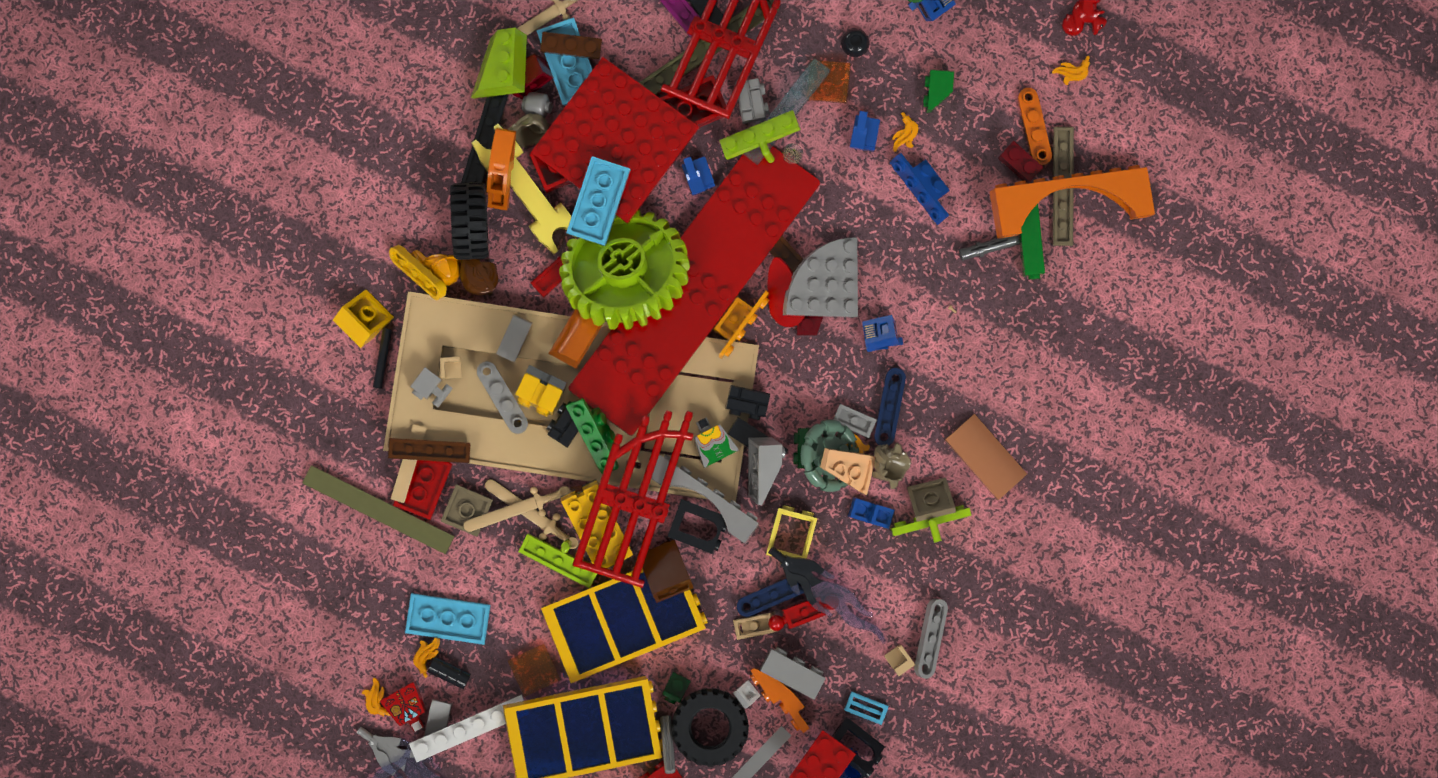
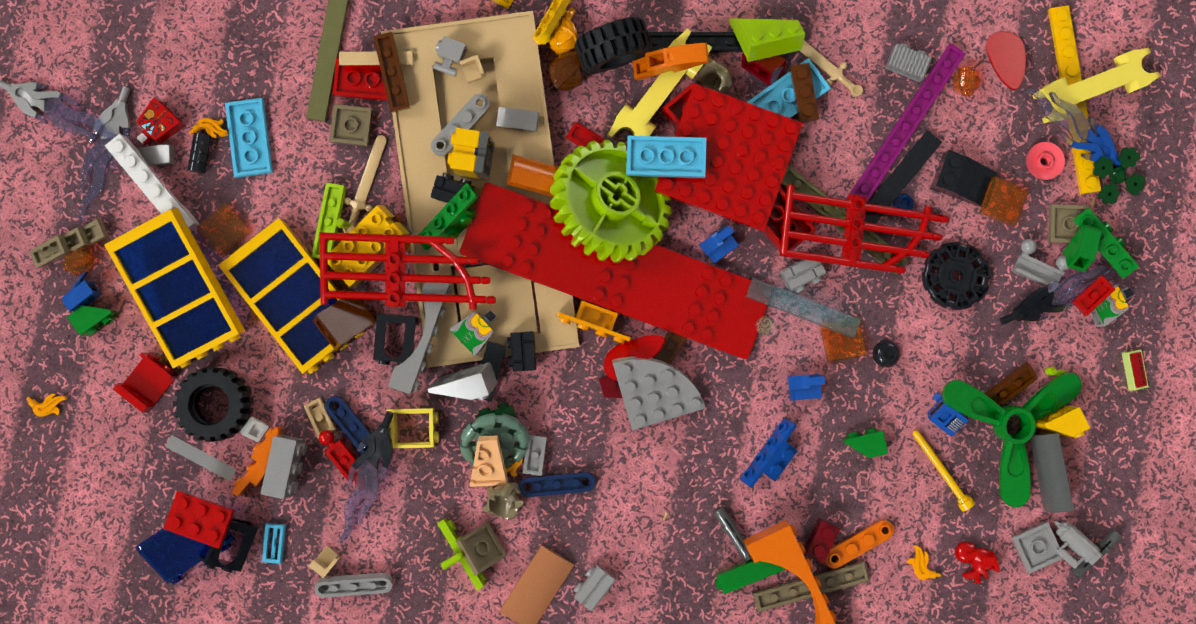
camera: 75 degrees right, 0 degrees up
(373, 699) = (160, 92): light orange piece -> none
(382, 358) = (467, 9): black piece -> none
(515, 509) = (365, 170): tan sword -> none
(537, 103) = (741, 78): light grey head -> none
(667, 743) = (185, 370): light grey axle -> none
(675, 688) = (242, 362): dark green bracket -> none
(760, 136) = (772, 290): lime plate -> none
(871, 513) = (454, 495): blue slope -> none
(881, 333) = (622, 456): blue piece -> none
(906, 135) = (815, 426): light orange piece -> none
(1001, 399) = (594, 587): none -> light grey brick
(1023, 10) = (964, 501): none -> yellow piece

